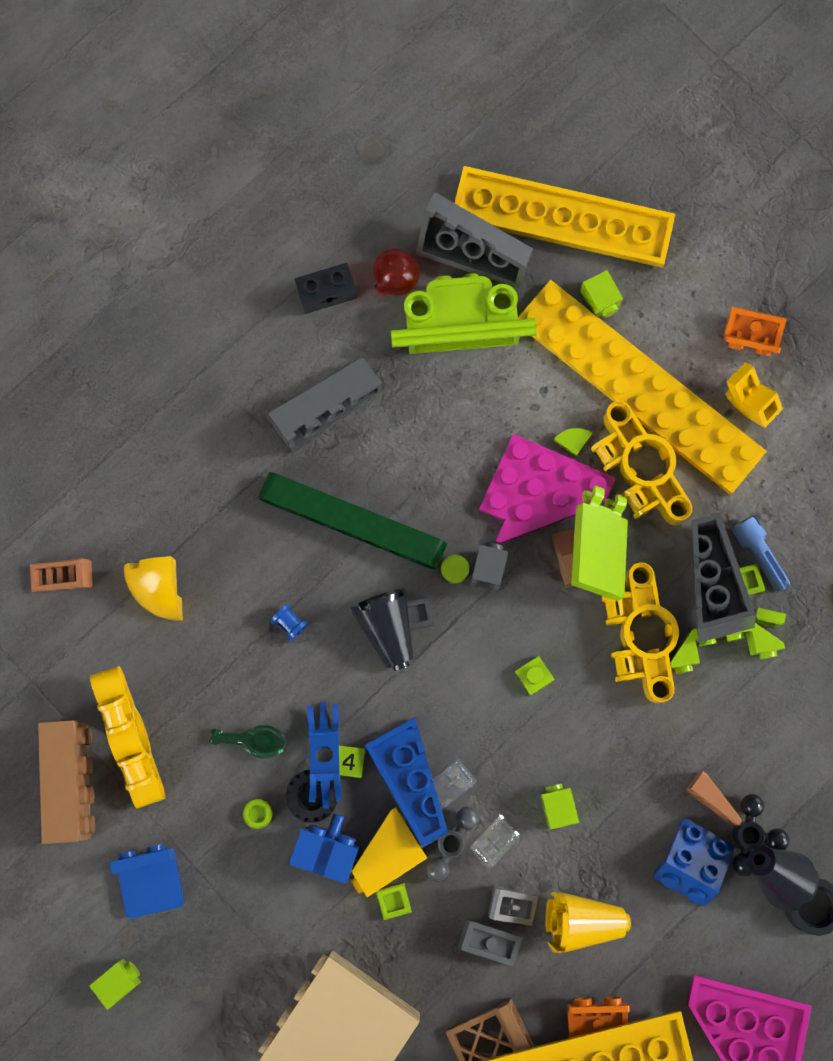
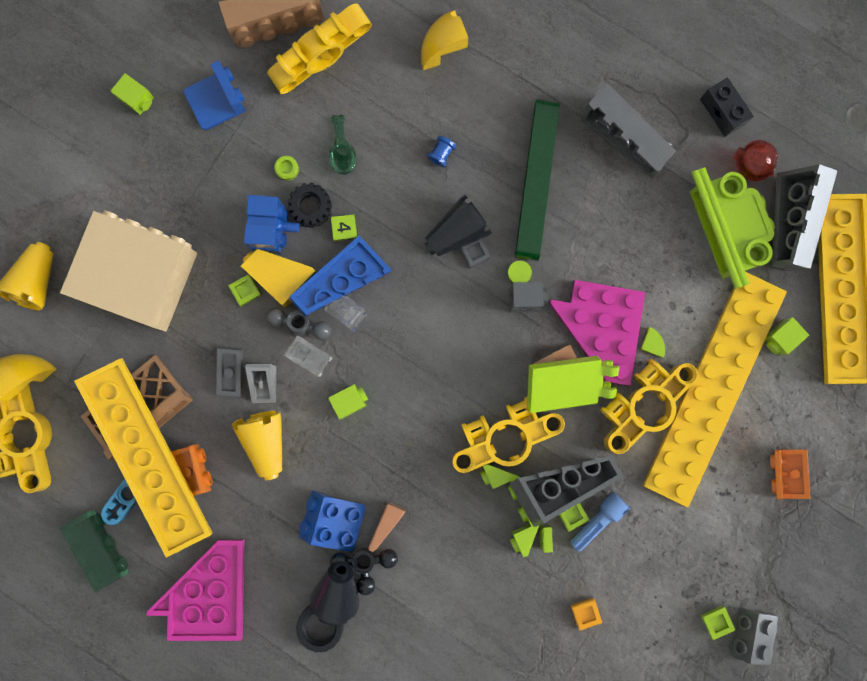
camera: 75 degrees right, 5 degrees up
(324, 738) = (331, 211): blue piece -> none
(534, 675) = (449, 357): lime plate -> none
(752, 398) = (731, 484): yellow brick -> none

